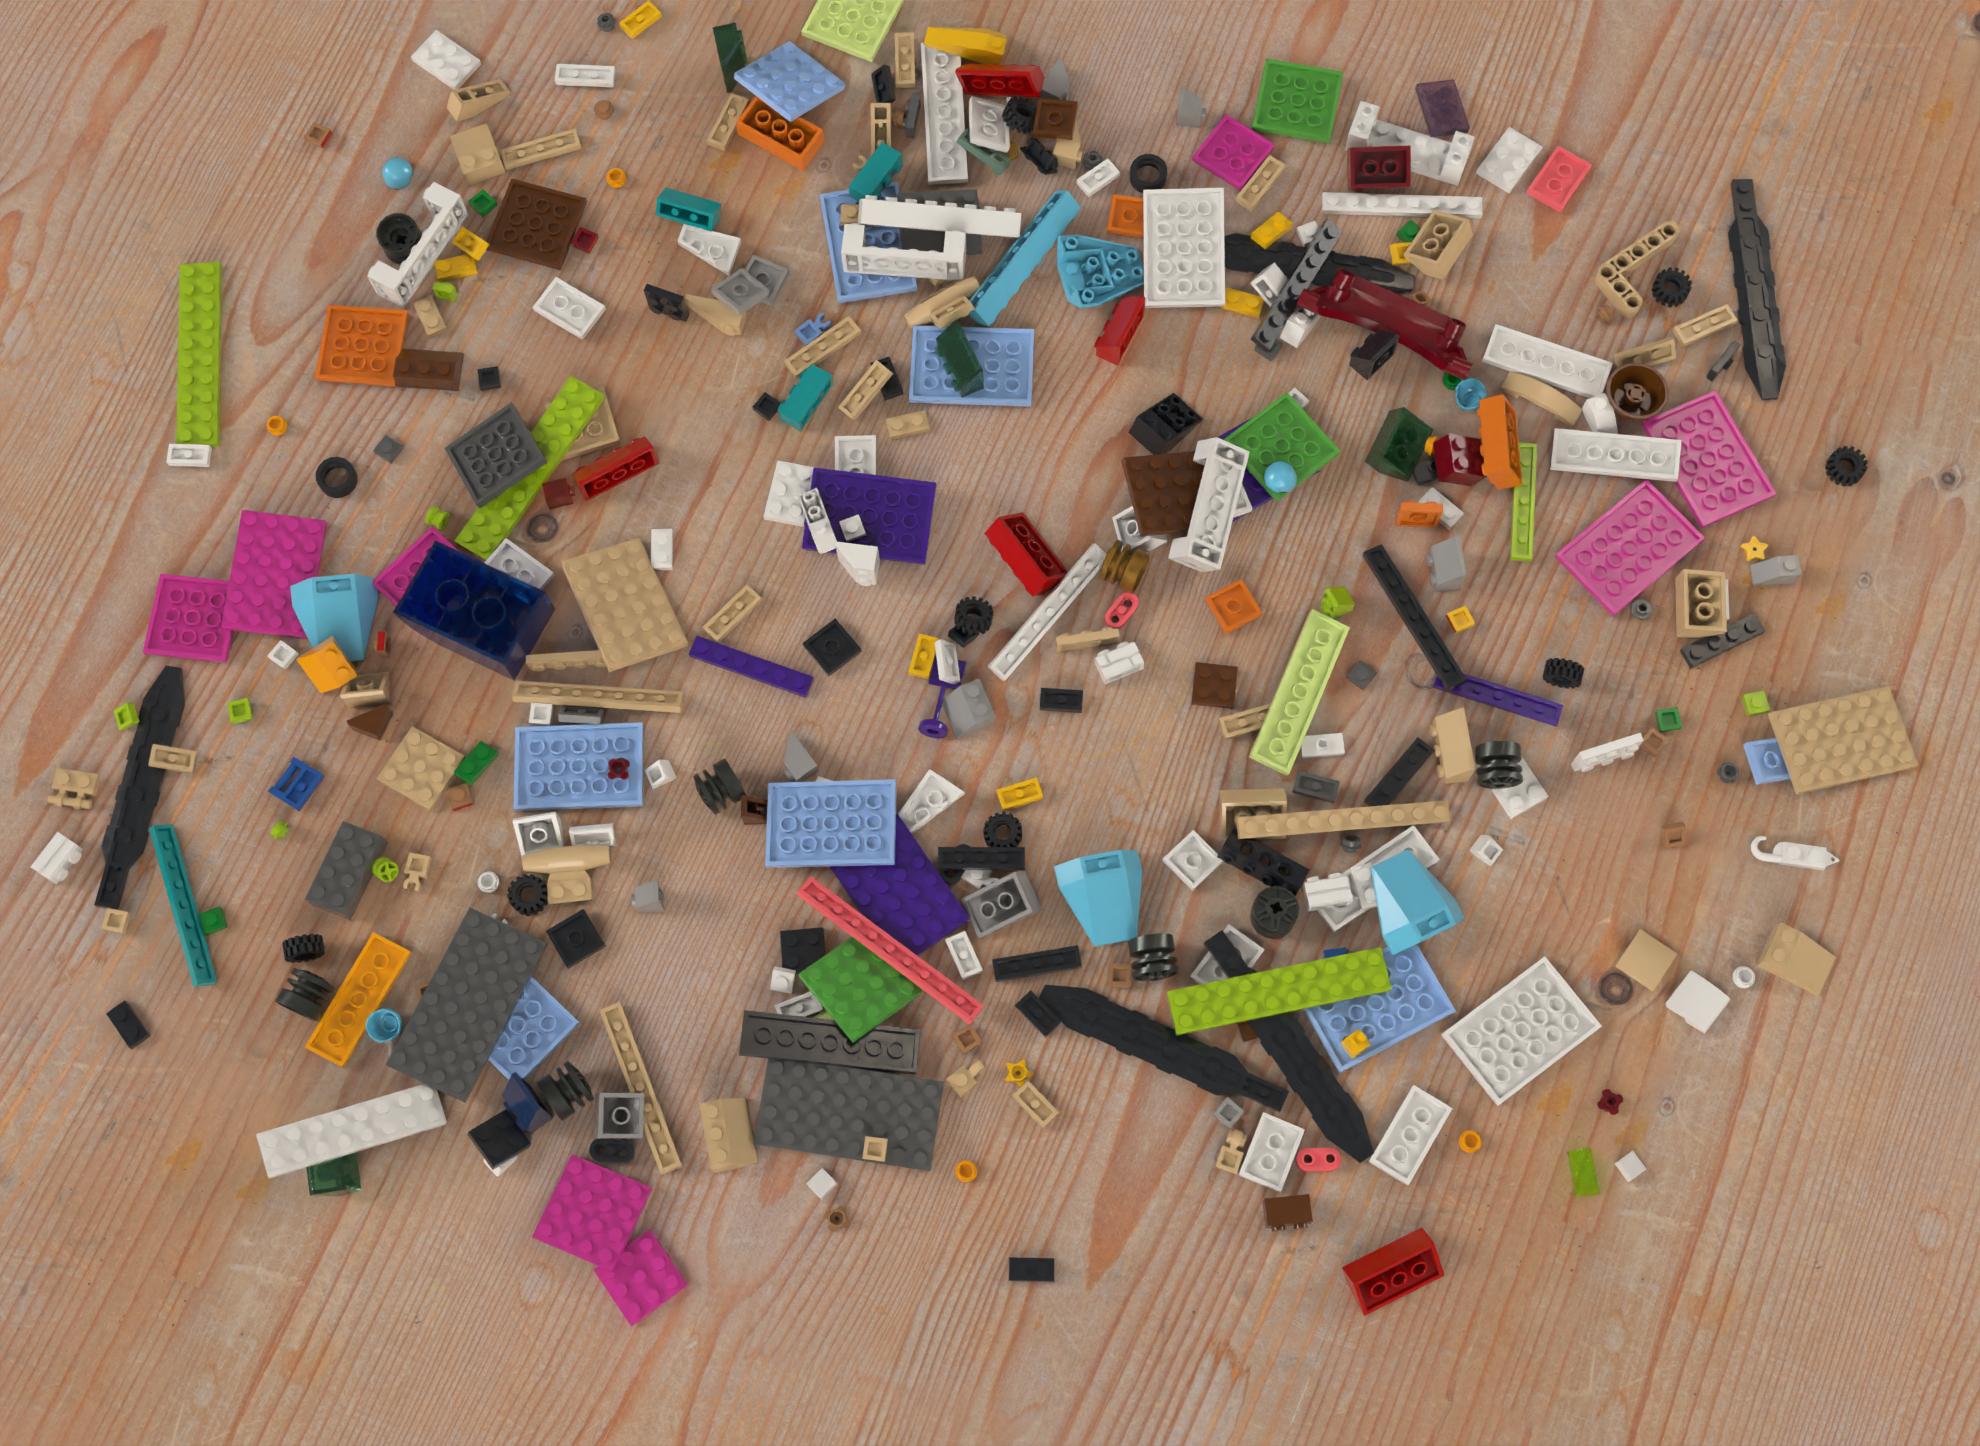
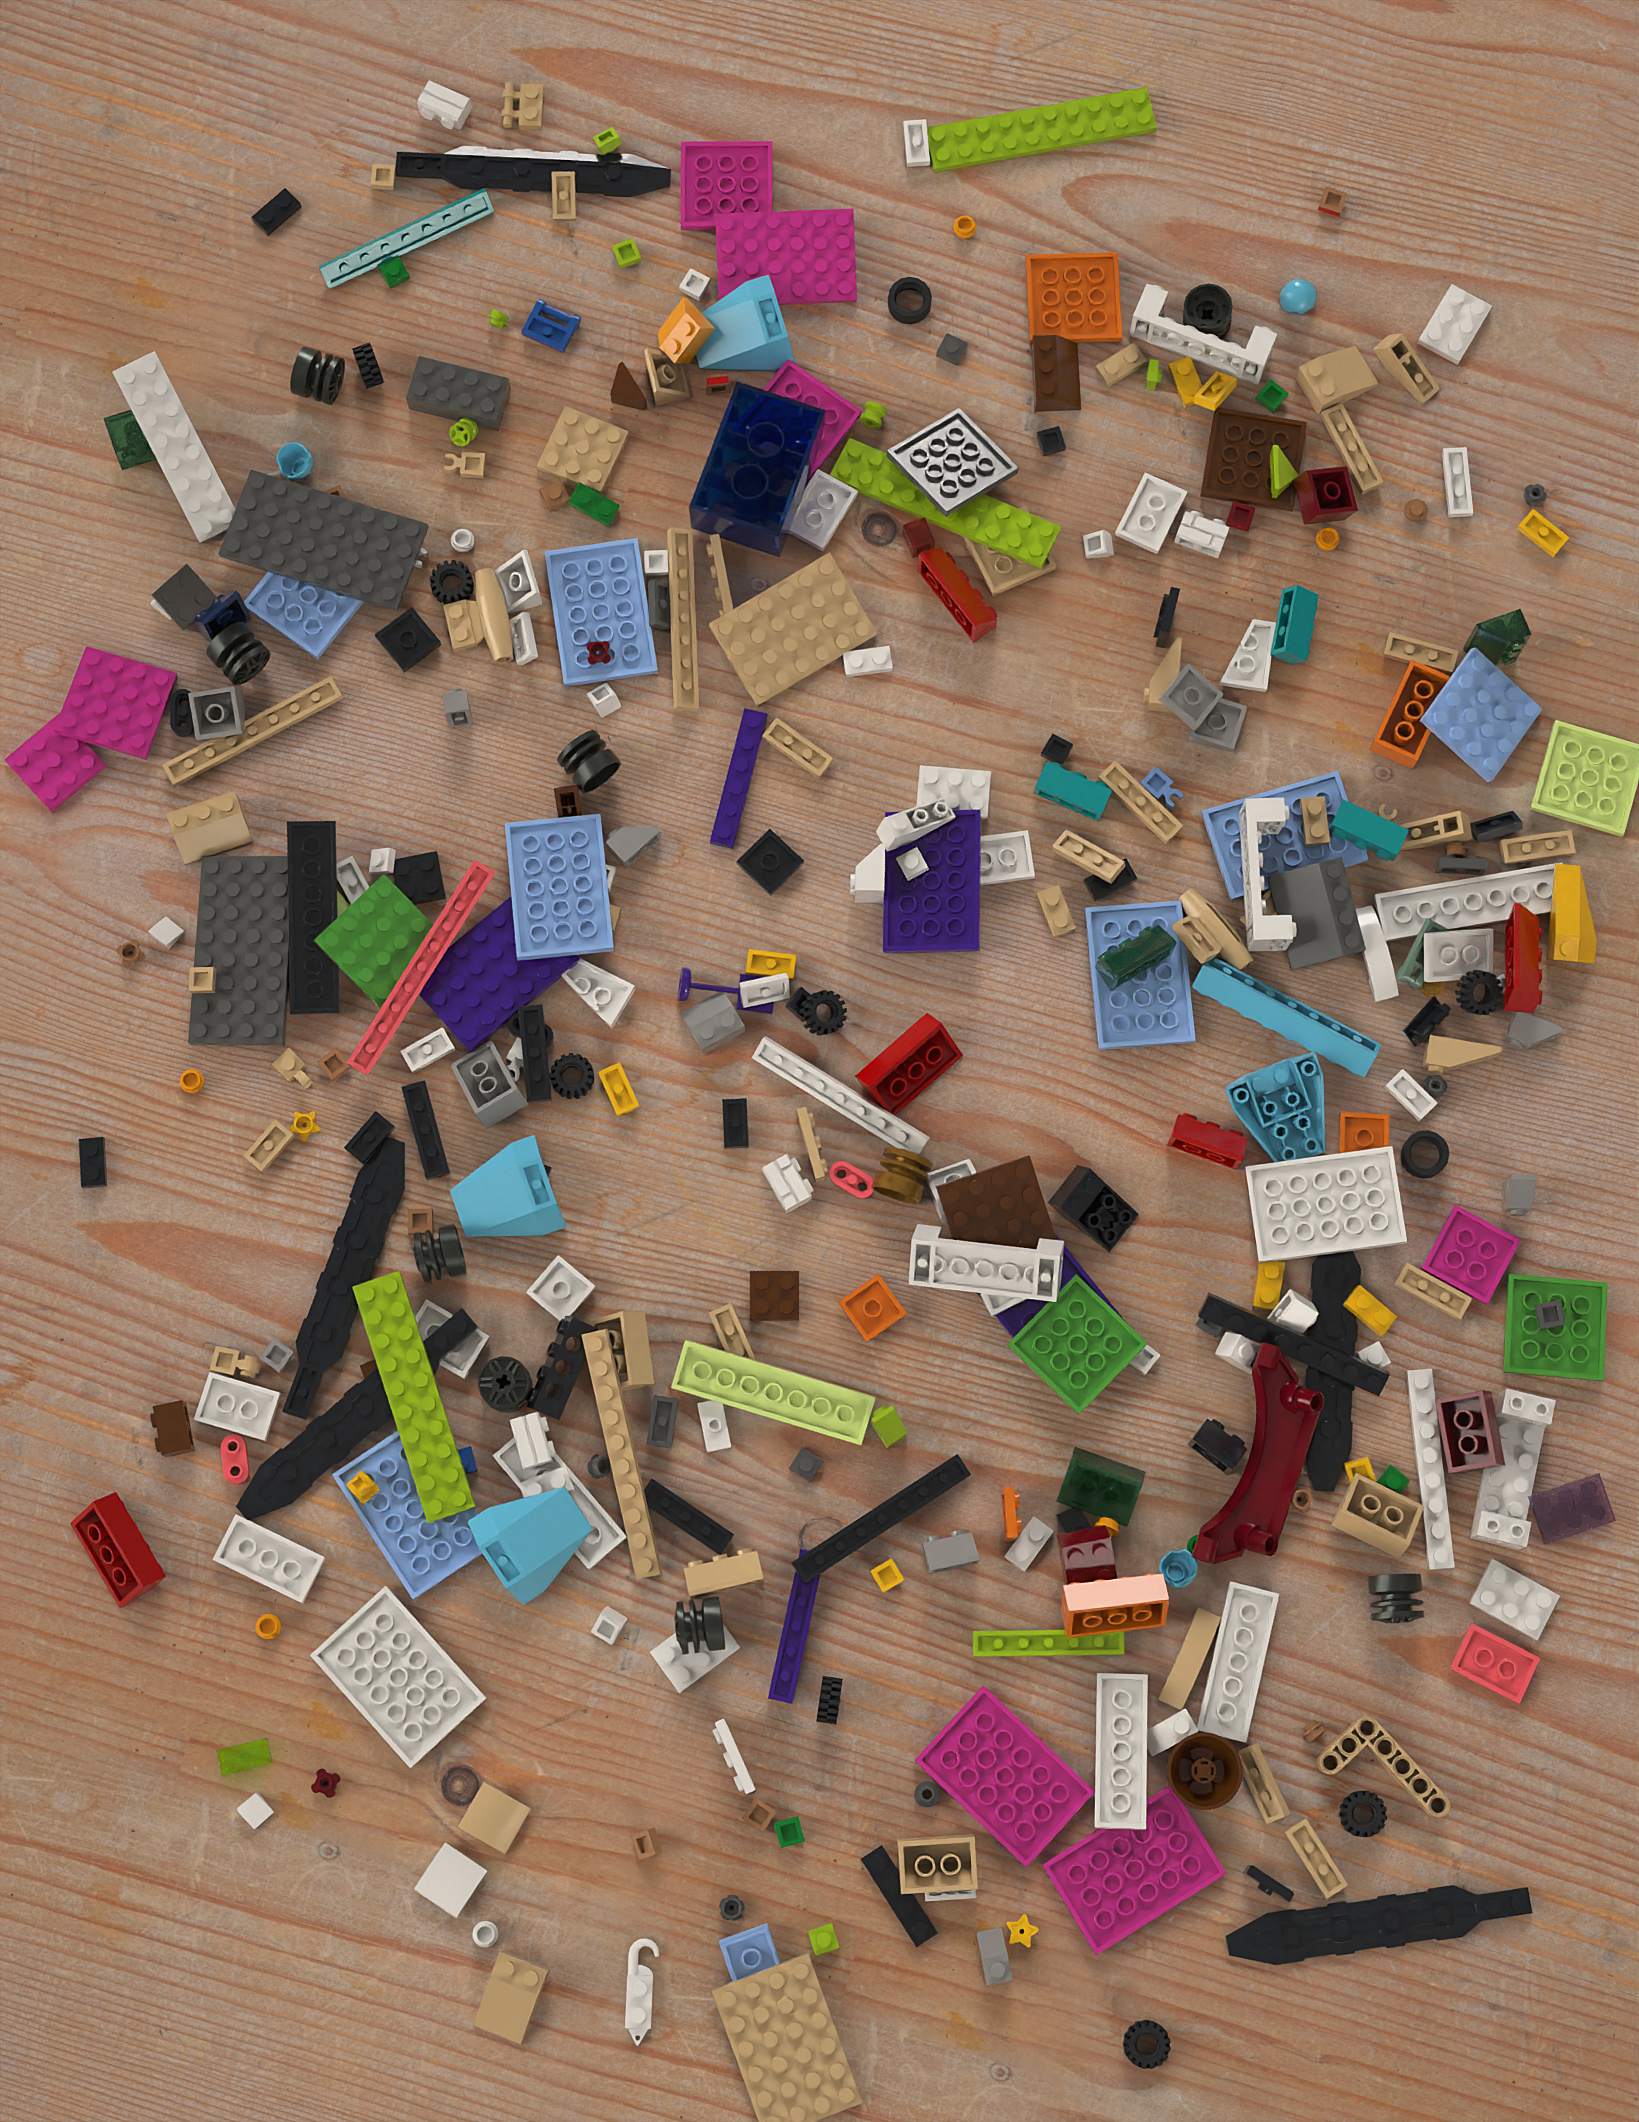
camera: 80 degrees right, 5 degrees up
(357, 998) = (322, 431): light orange plate -> none
(552, 201) = (1281, 471): none -> lime slope
(580, 170) = (1325, 495): none -> dark red brick
(588, 354) = (1098, 544): none -> white slope
(595, 271) = (1202, 534): none -> white brick
(939, 218) = (1314, 908): white brick -> none
(986, 185) = (1377, 956): none -> white slope
(1055, 119) = (1474, 1031): reddish brown plate -> none
(1280, 477) = (1032, 1344): medium azure hair -> none
(1290, 99) = (1549, 1315): none -> dark grey plate
(1506, 237) = (1395, 1597): none -> pearl dark grey wheel

